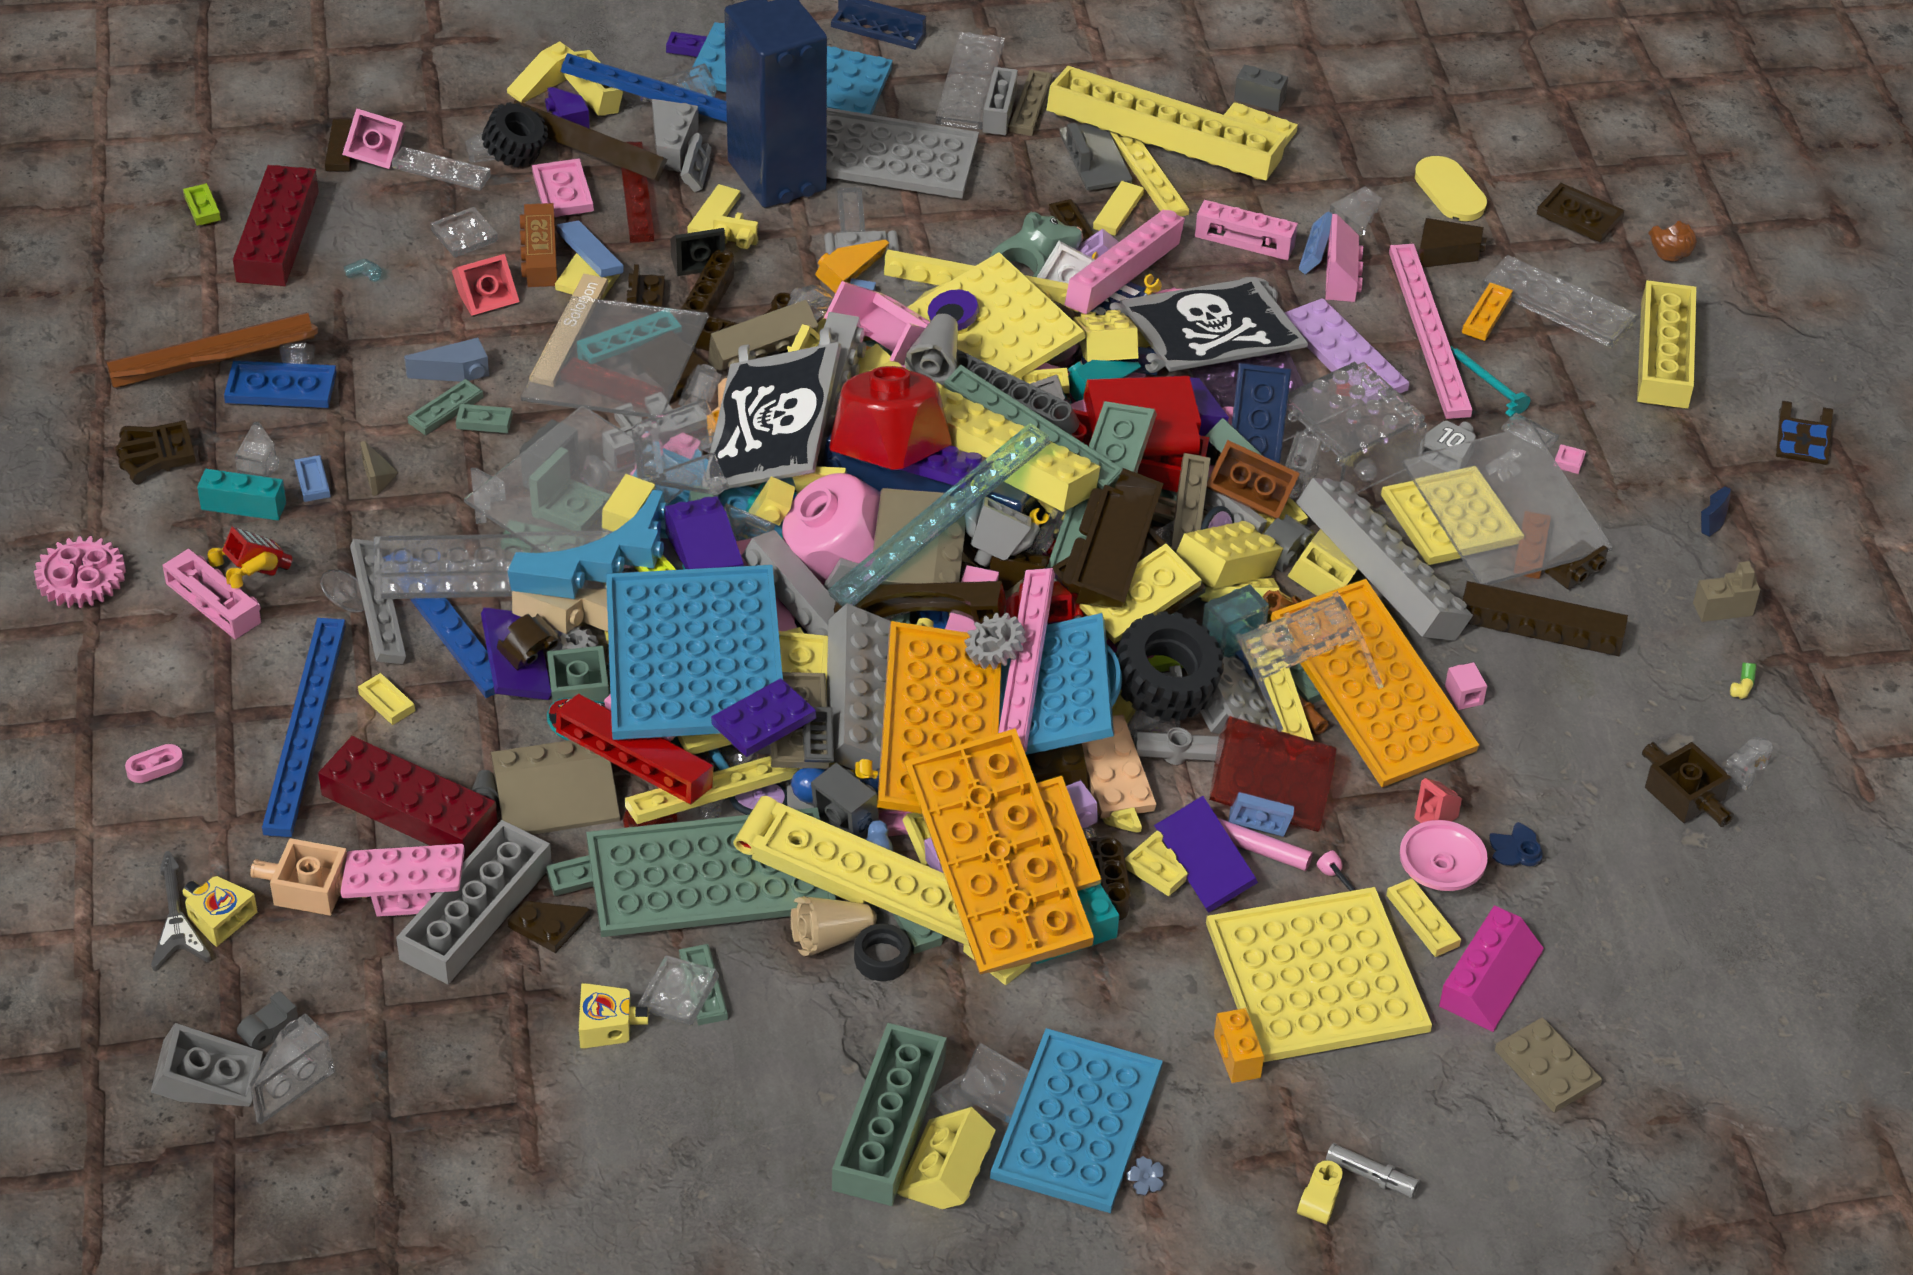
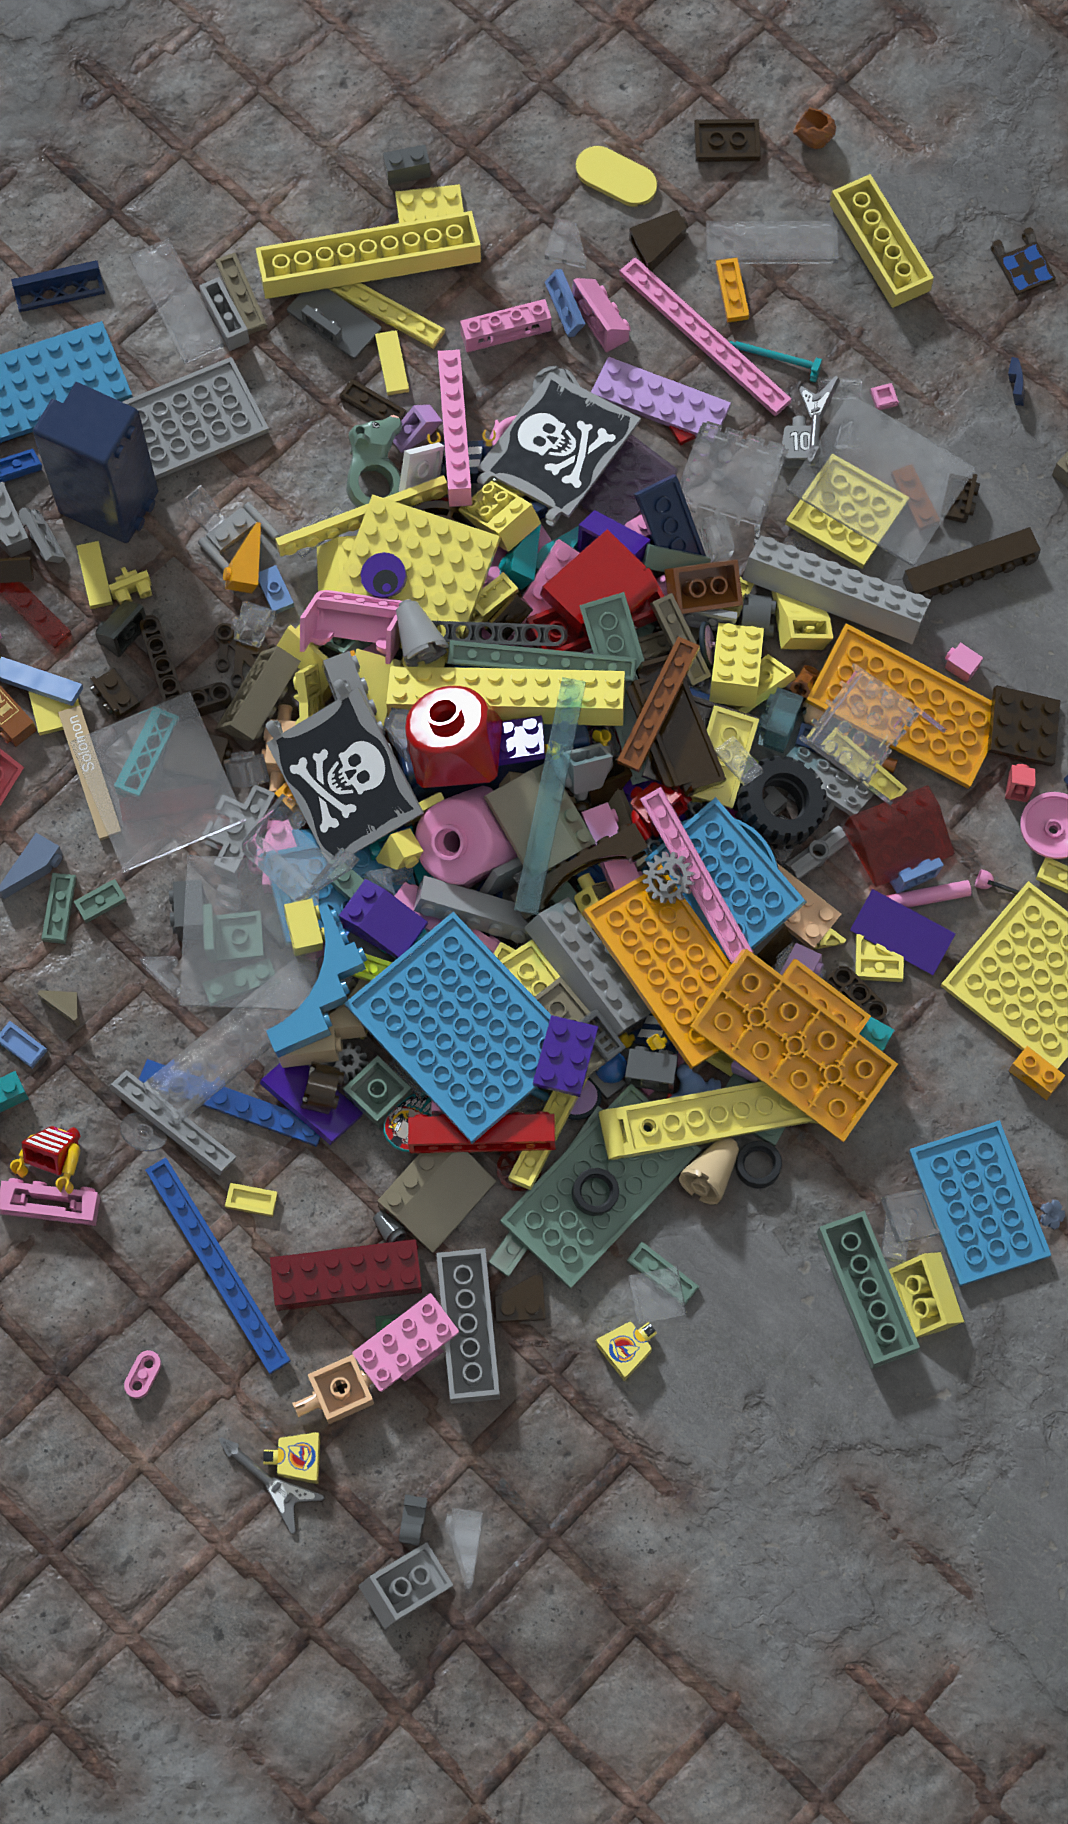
camera: 35 degrees left, 25 degrees up
(700, 845) = (607, 1177): none -> black tyre
(1109, 507) = (658, 704): none -> dark orange plate
(1149, 595) = (738, 761): none -> clear plate
(1483, 765) = (1023, 726): none -> dark brown plate
(1488, 422) = (816, 406): none -> flat silver piece

